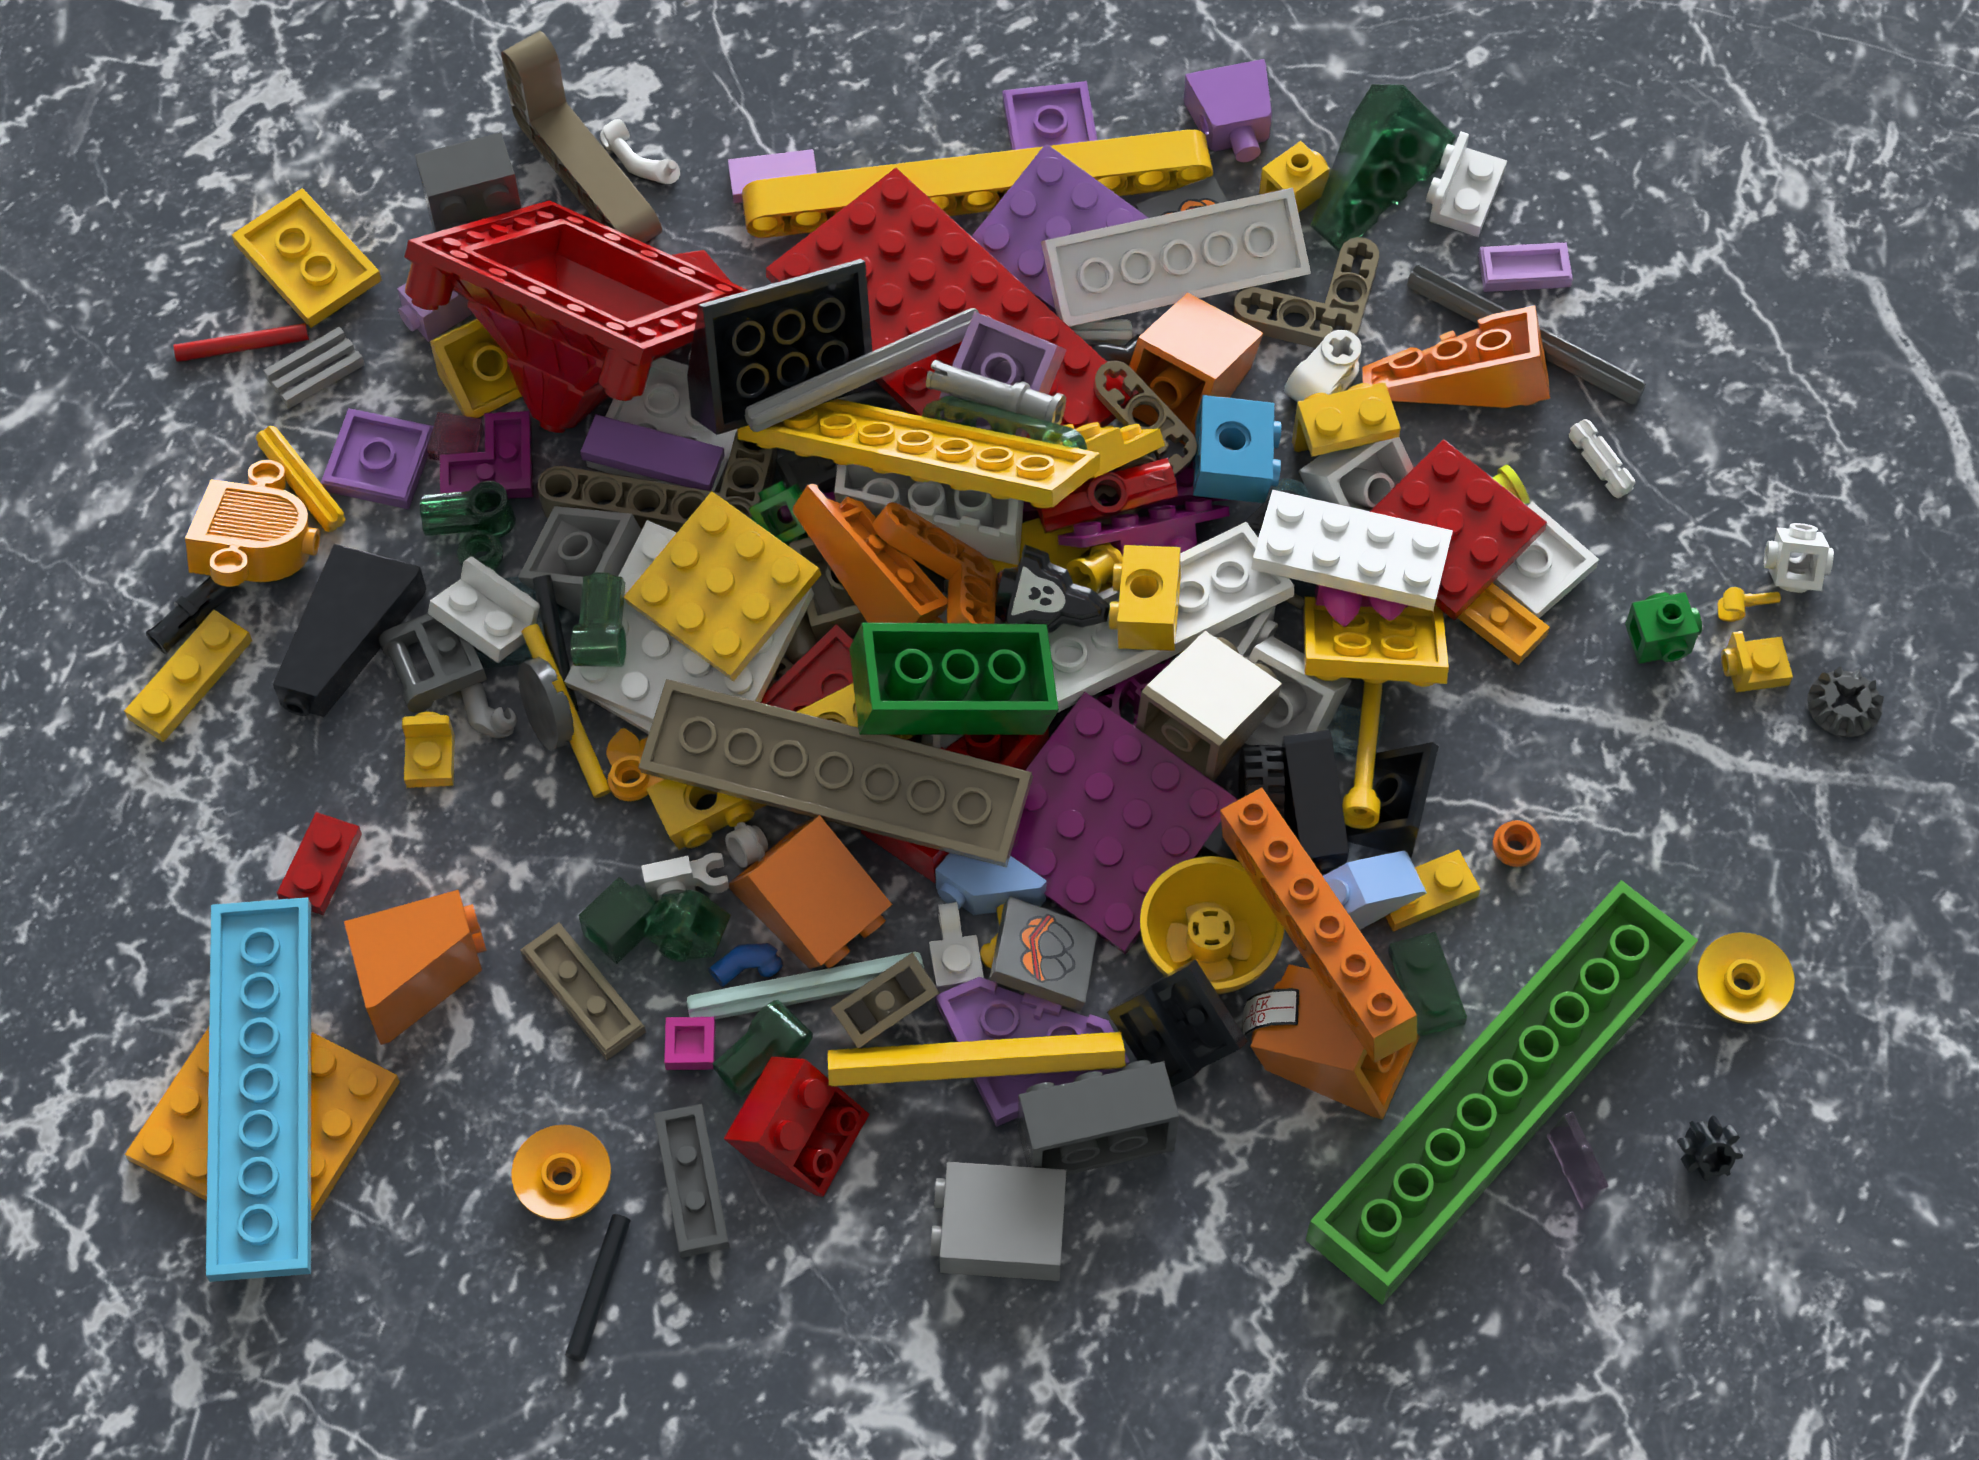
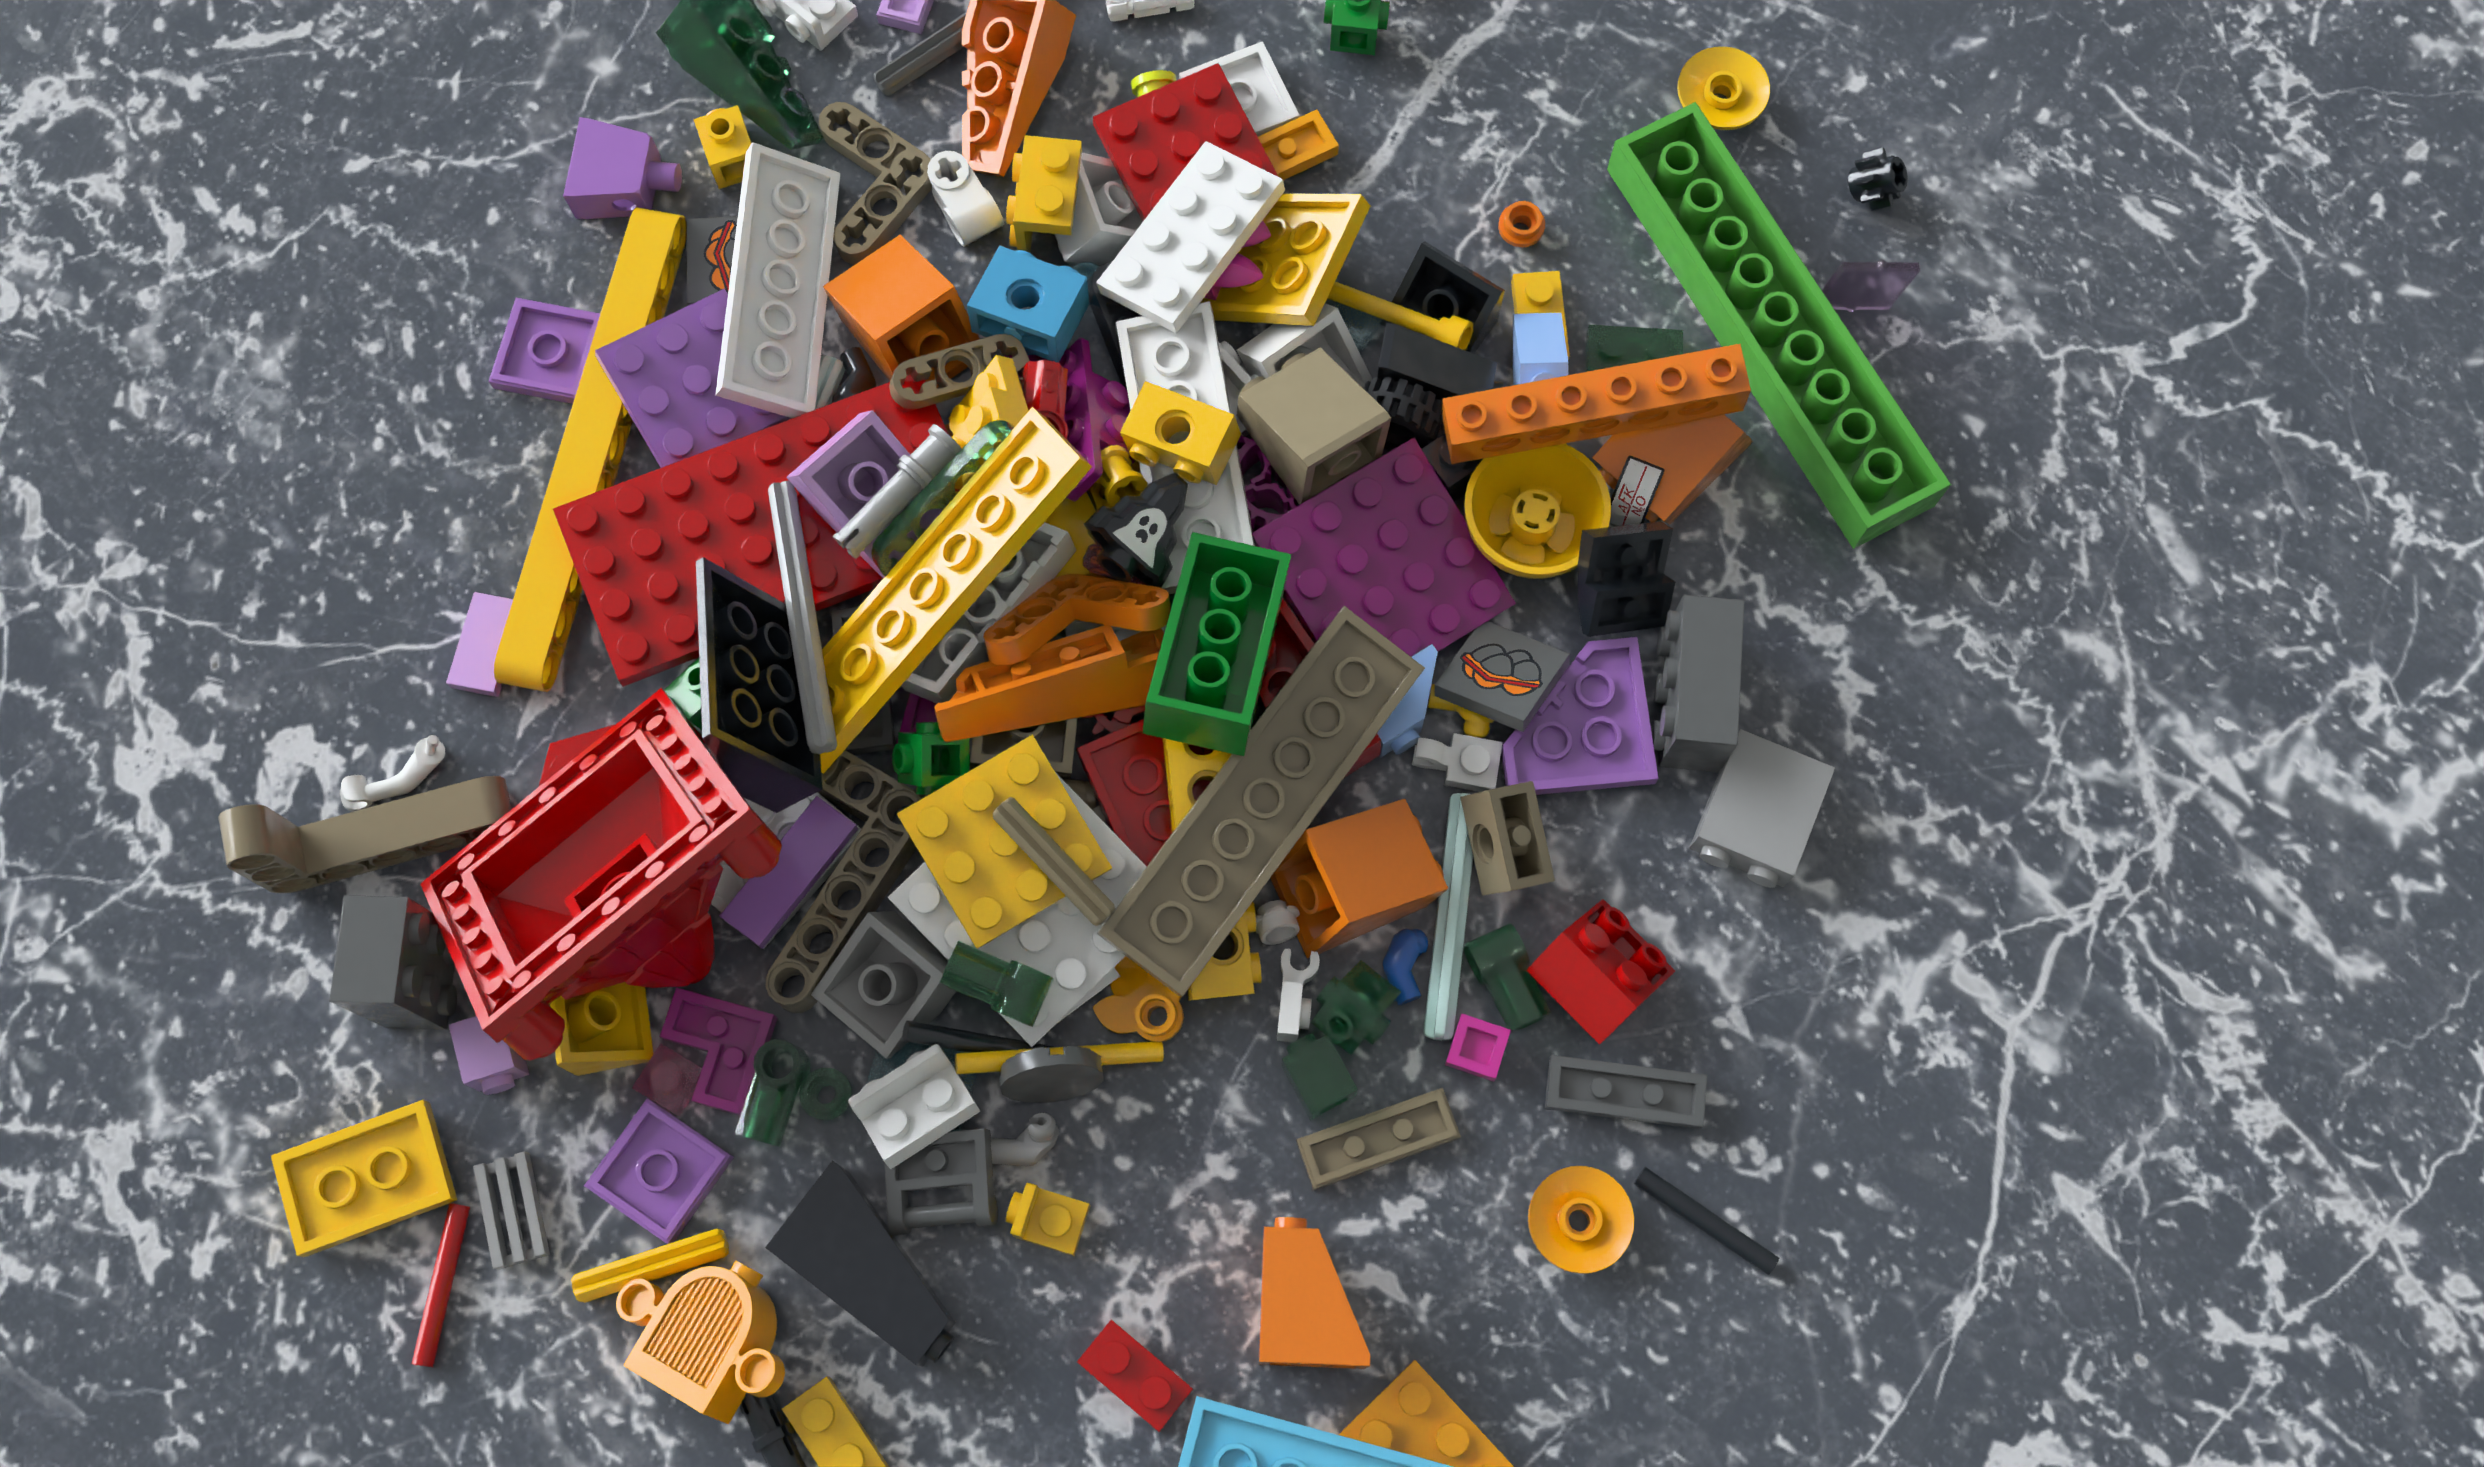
camera: 70 degrees left, 10 degrees up
(712, 620) = (1053, 861): none -> dark tan axle
(976, 1059) = (1600, 775): yellow tile -> none

